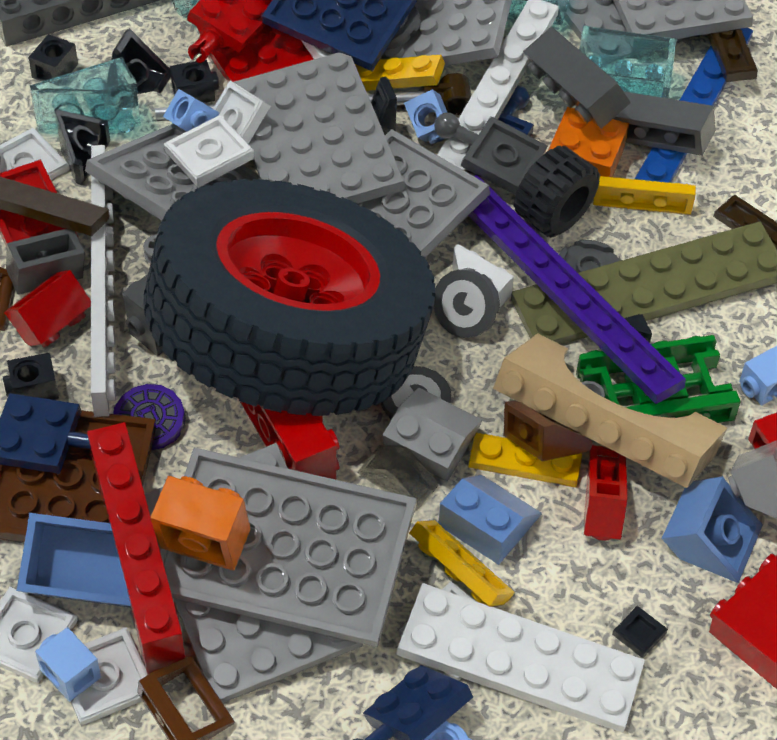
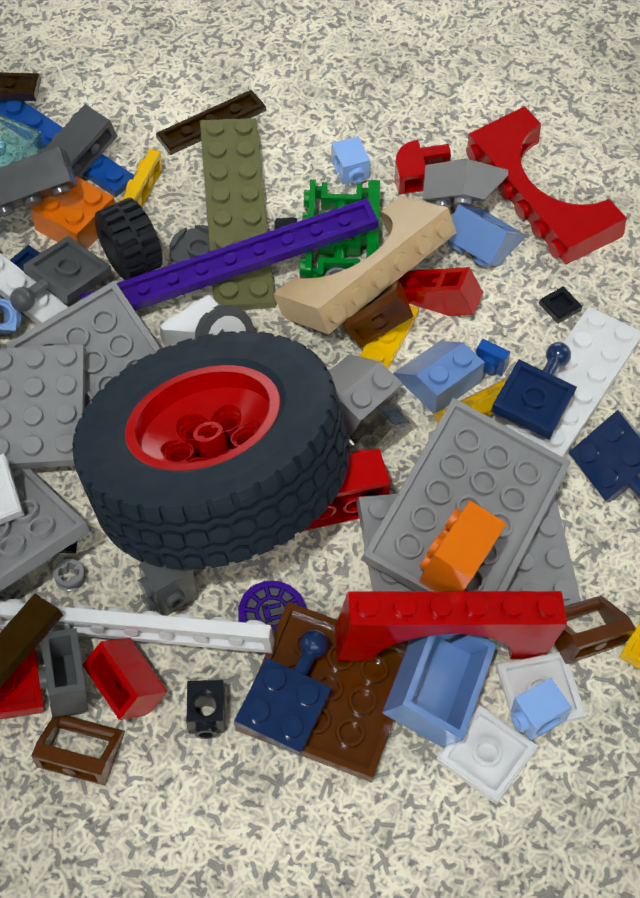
camera: 75 degrees left, 5 degrees up
(465, 596) = (536, 396): none -> dark blue plate
(524, 562) = (494, 356): none -> blue plate

